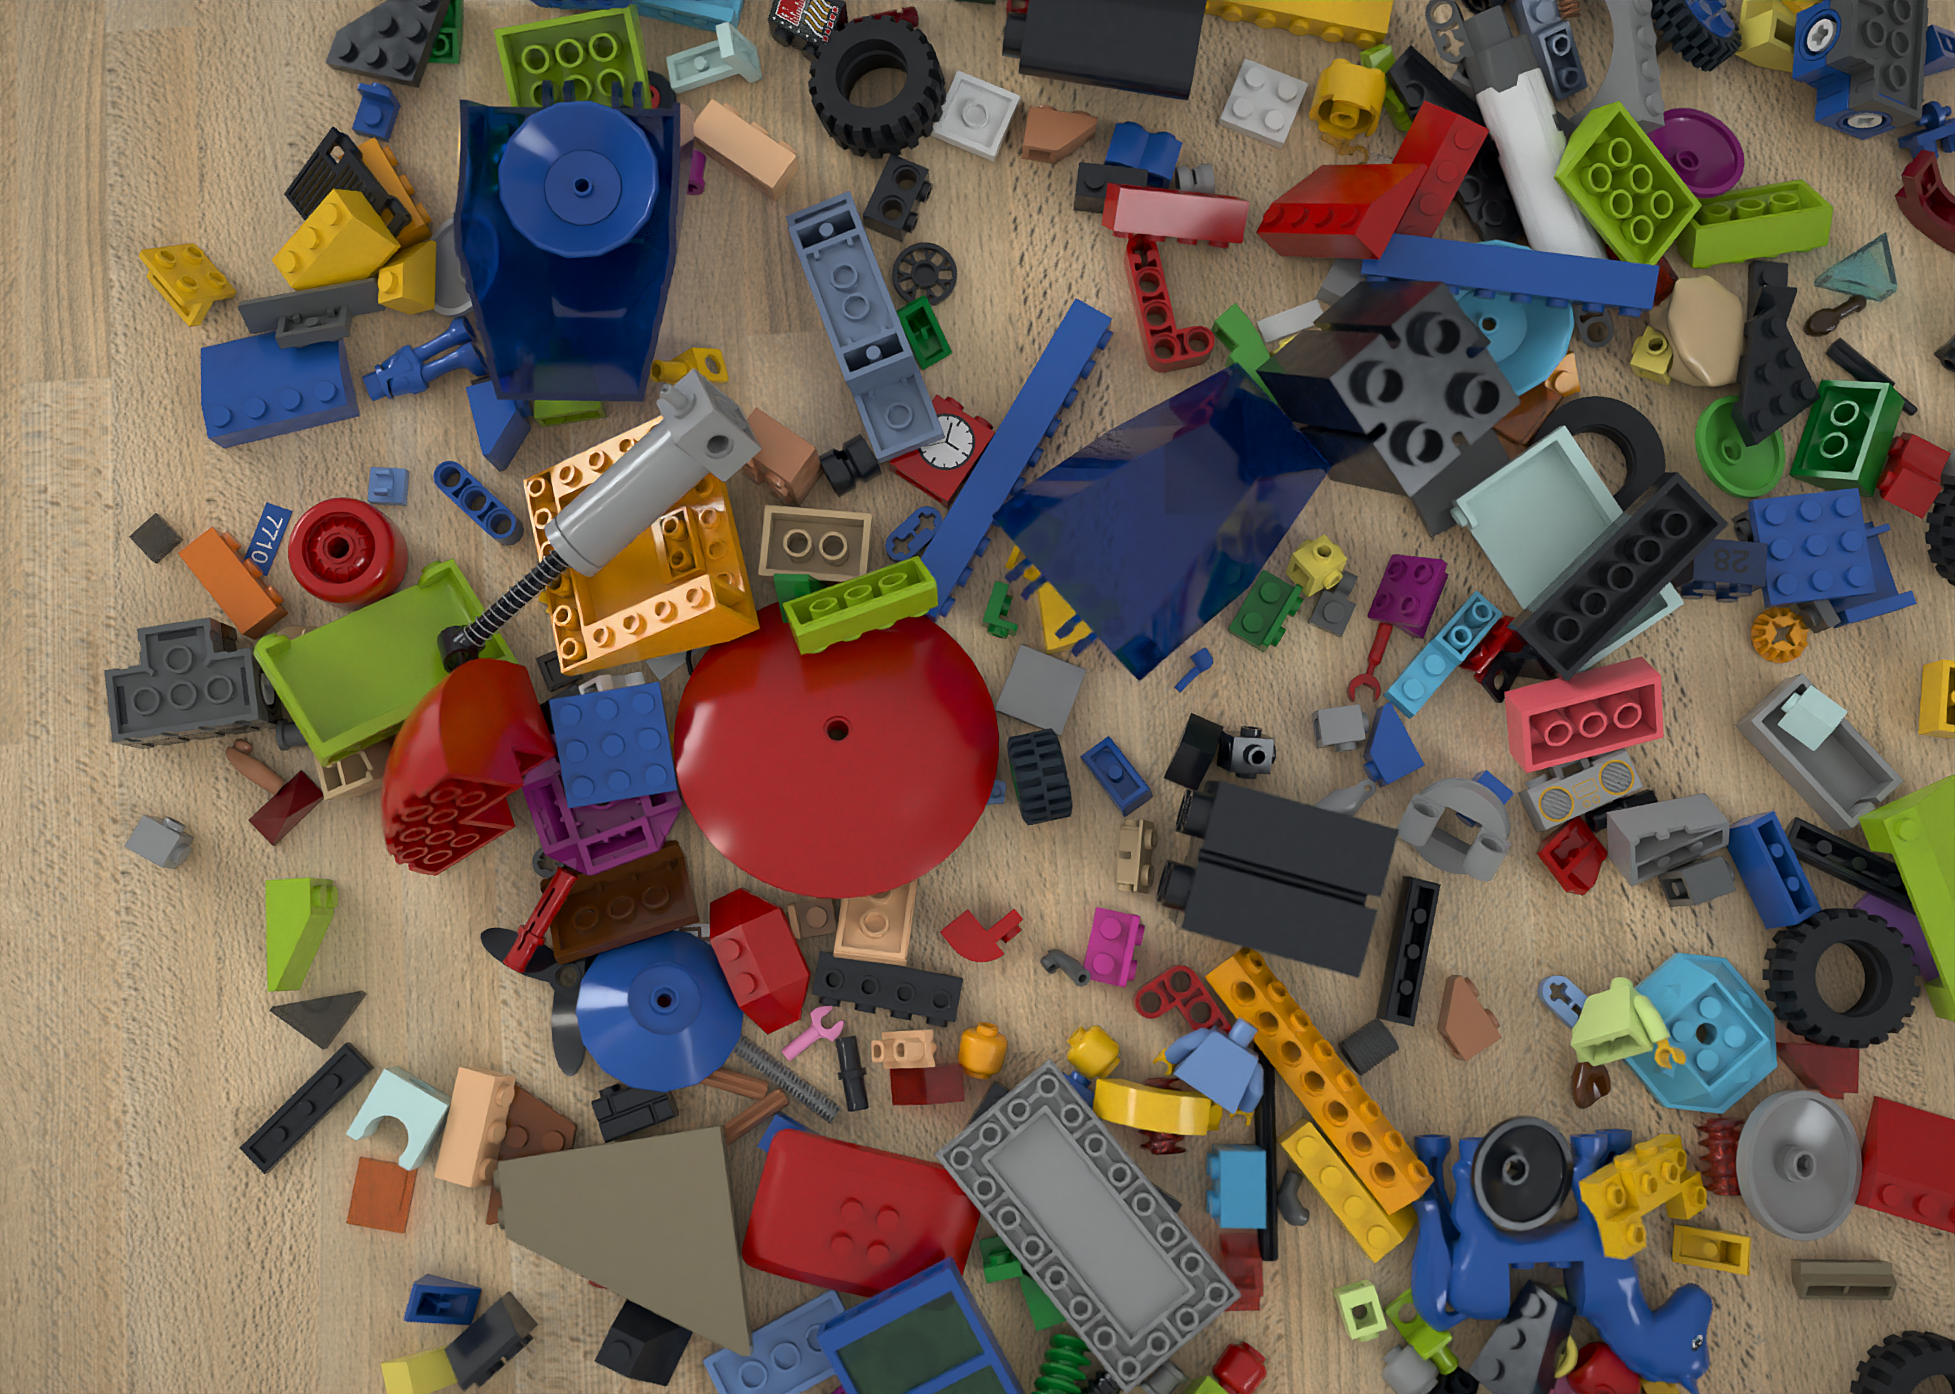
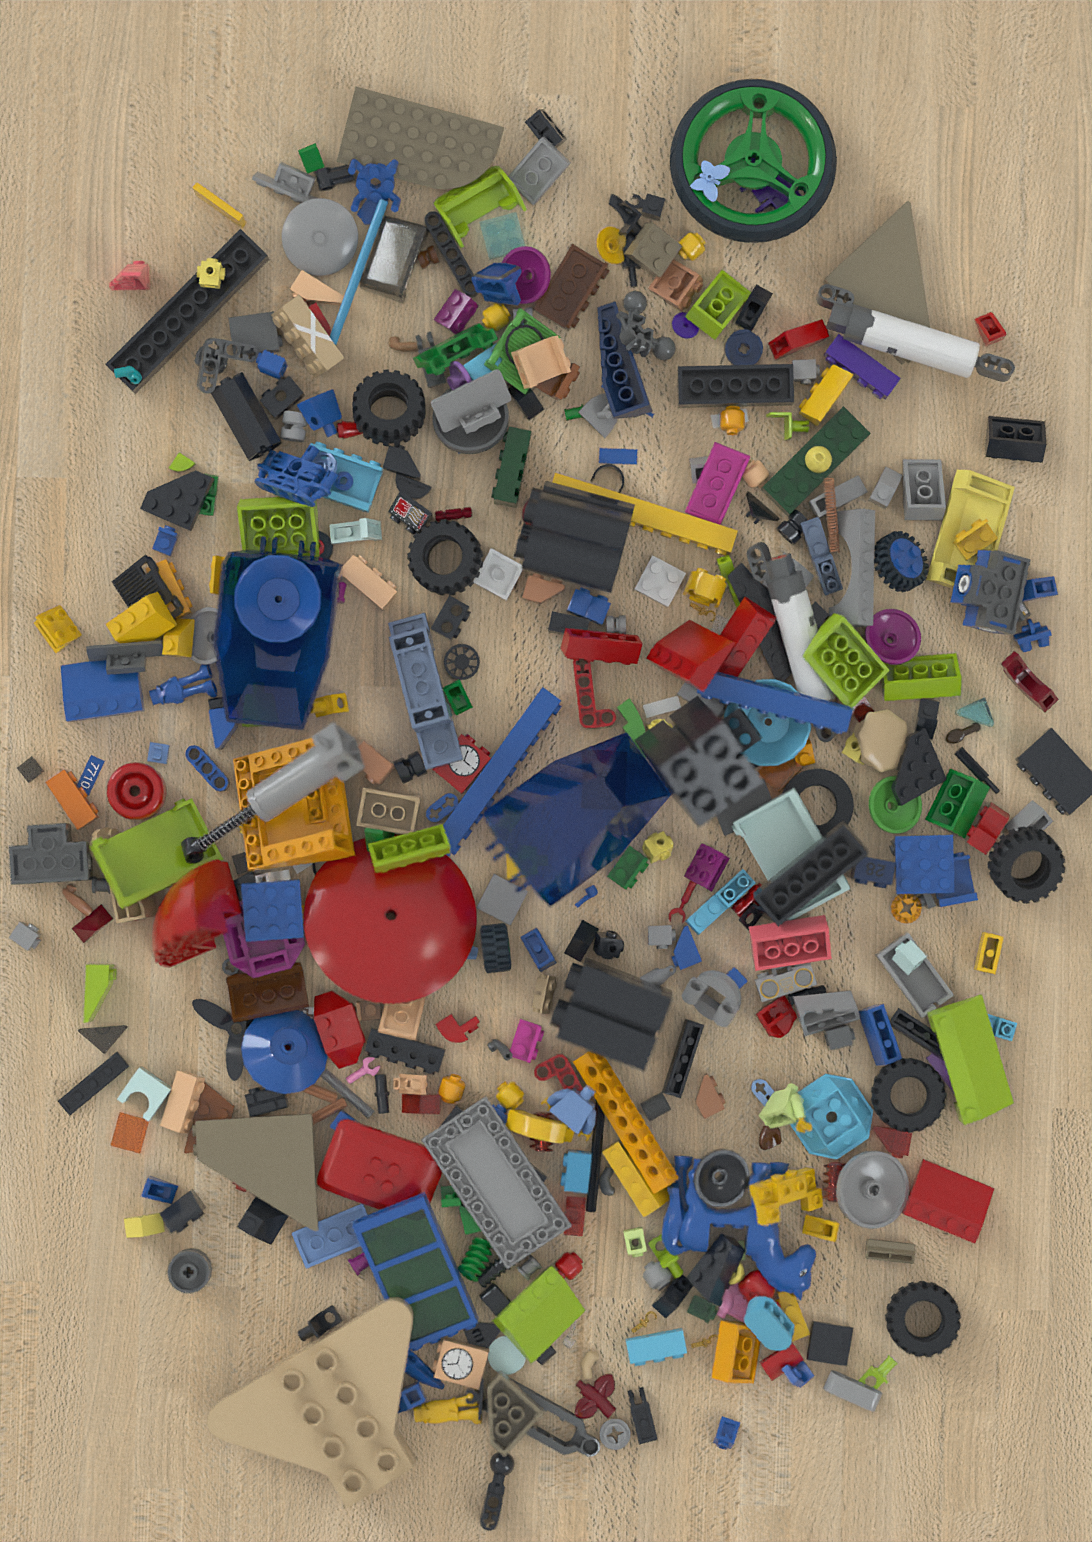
camera: 10 degrees right, 5 degrees up
(532, 933) = (221, 1004): red pin -> none
(999, 605) = (481, 854): green bracket -> none
(1334, 609) = (665, 870): dark grey plate -> none

